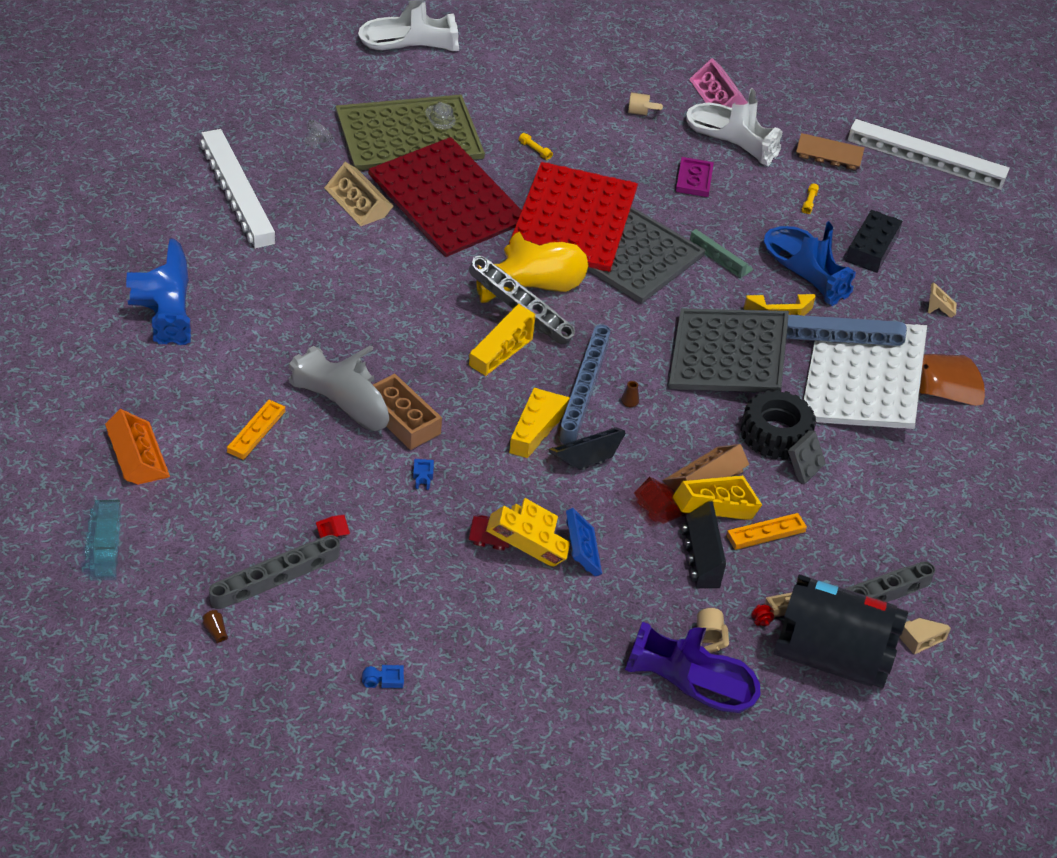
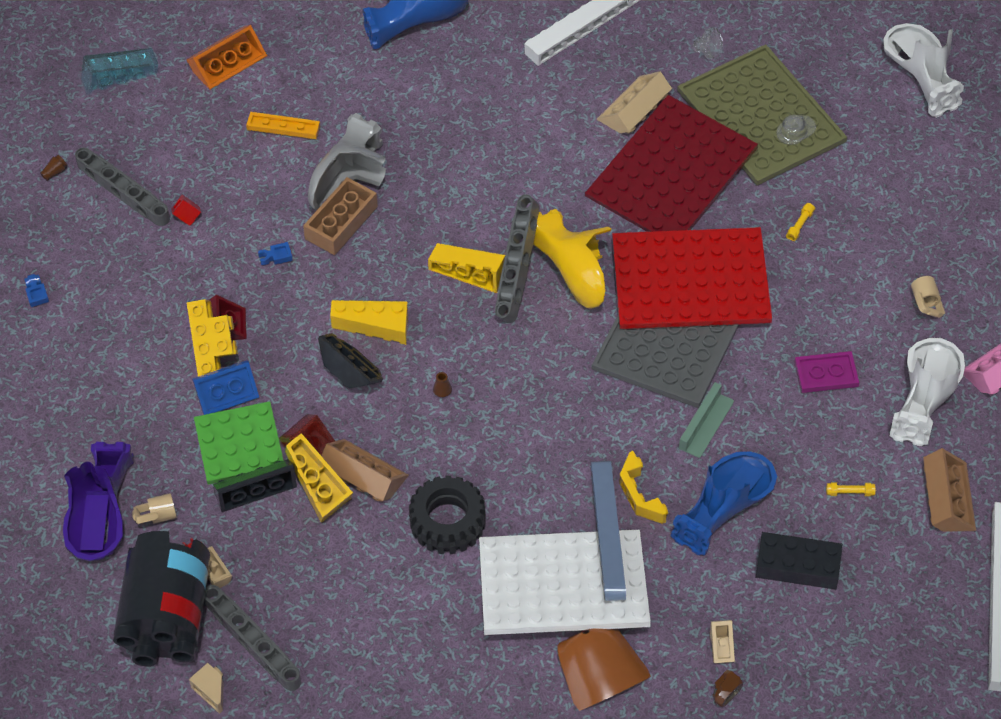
camera: 80 degrees right, 10 degrees up
(585, 384) = (441, 344): sand blue beam -> none
(643, 555) = (237, 441): none -> bright green plate
(729, 350) = (539, 452): dark grey plate -> none
(766, 531) = (303, 534): light orange plate -> none
(807, 457) = (408, 546): dark grey plate -> none
(982, 312) = (727, 688): none -> reddish brown rock

